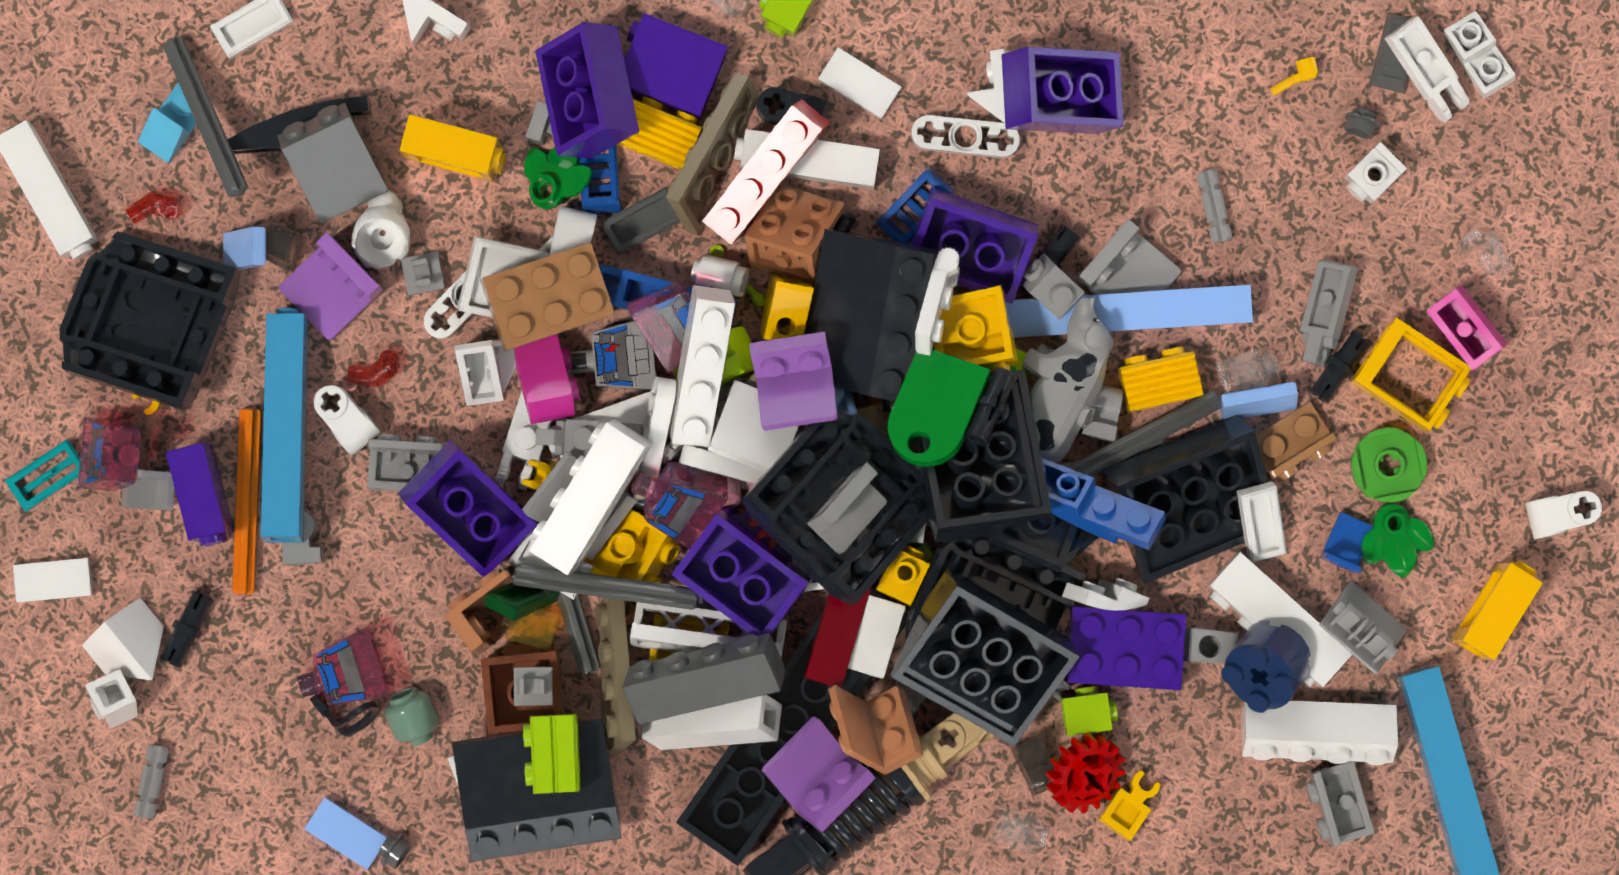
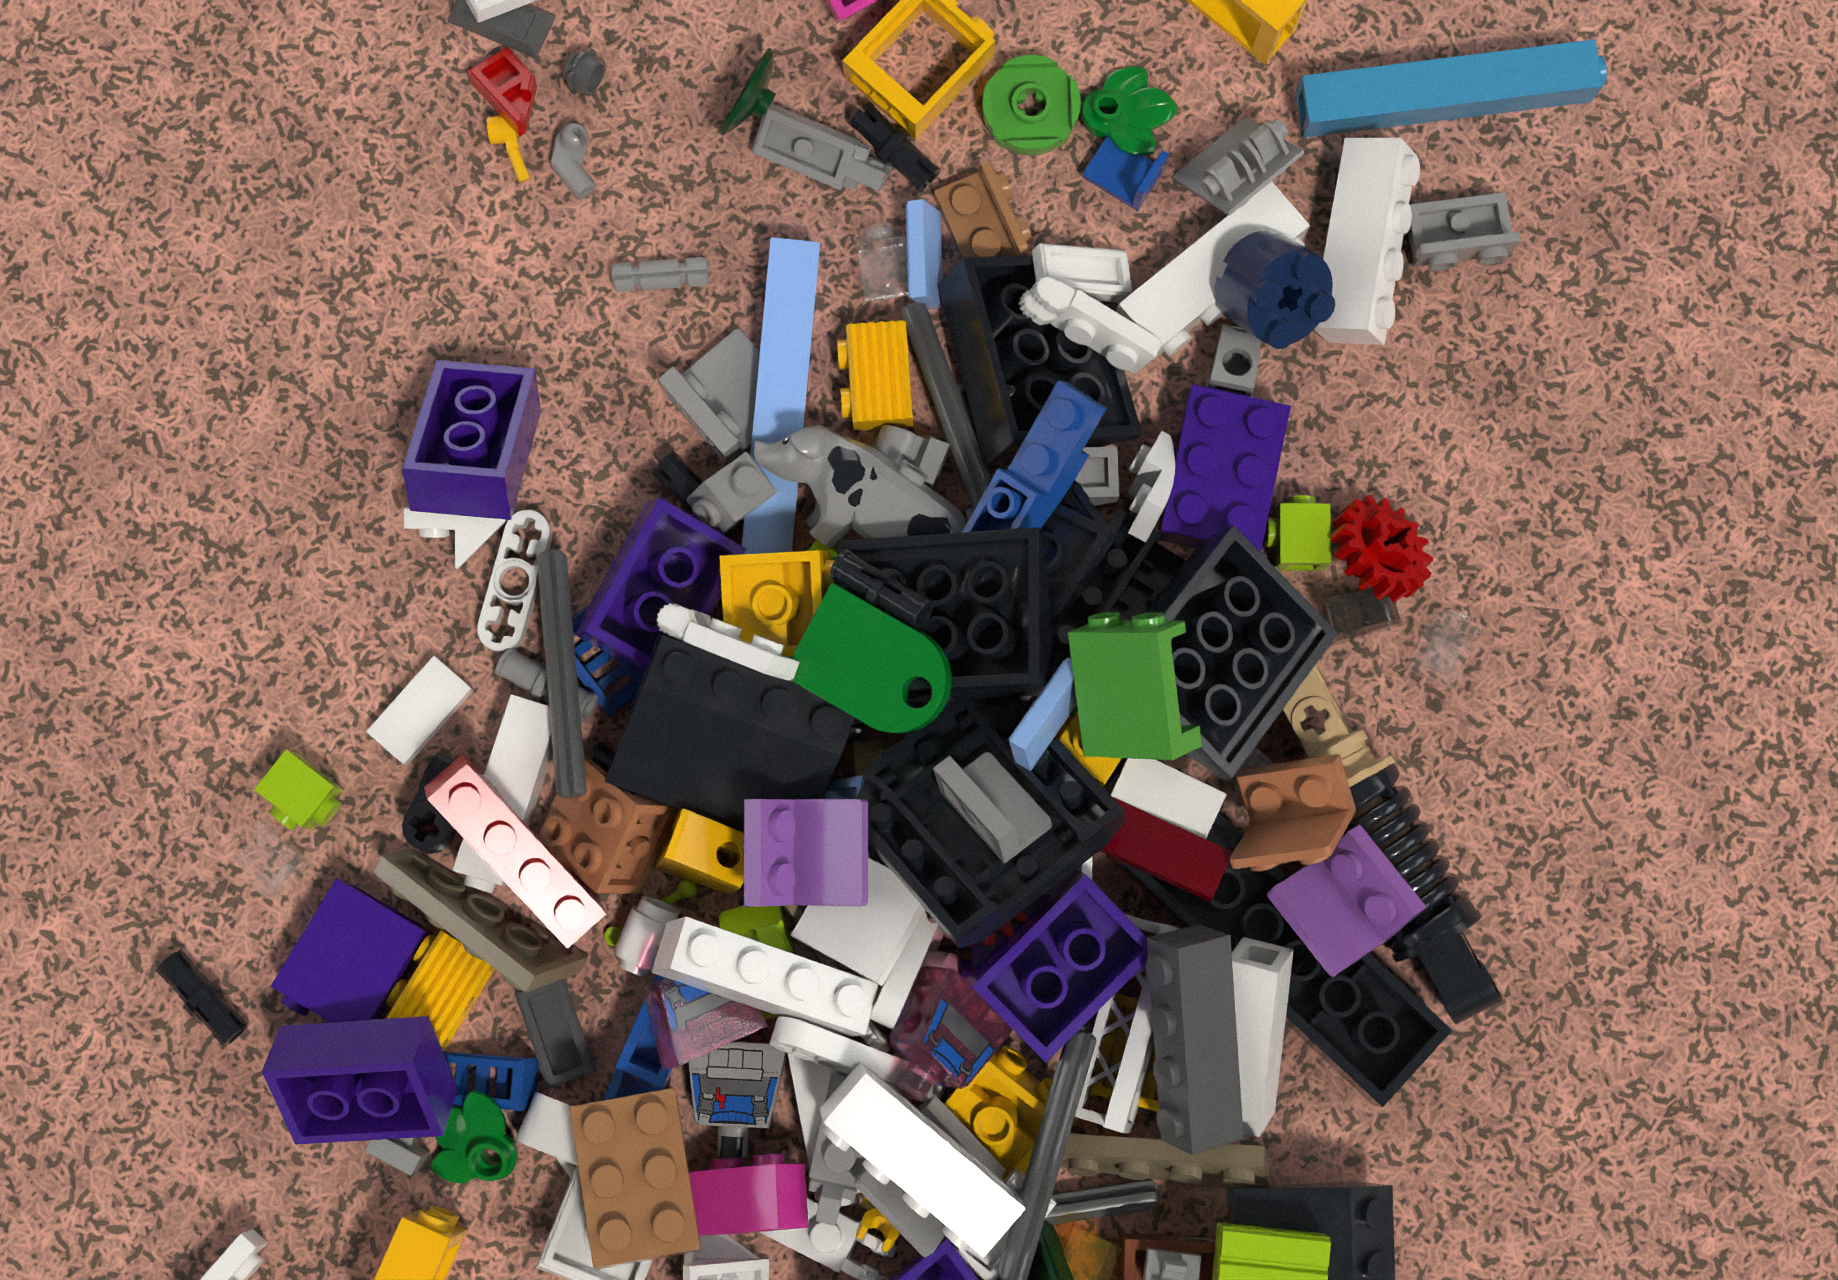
camera: 80 degrees left, 5 degrees down
(891, 173) = (533, 678): none -> light grey pin
(900, 183) = (561, 674): none -> dark grey axle
(919, 539) = (1044, 717): none -> light blue tile
(943, 592) = (1129, 688): none -> bright green panel
(1107, 555) = (1100, 476): none -> light grey panel
(1126, 810) = (1434, 504): yellow plate -> none
(1219, 532) = (1090, 324): none -> white hinge
(1292, 122) = (569, 157): none -> light grey arm
(1339, 67) = (506, 87): none -> red tile
(1359, 254) = (754, 97): none -> dark green dish
(1362, 186) = (640, 48): white brick -> none

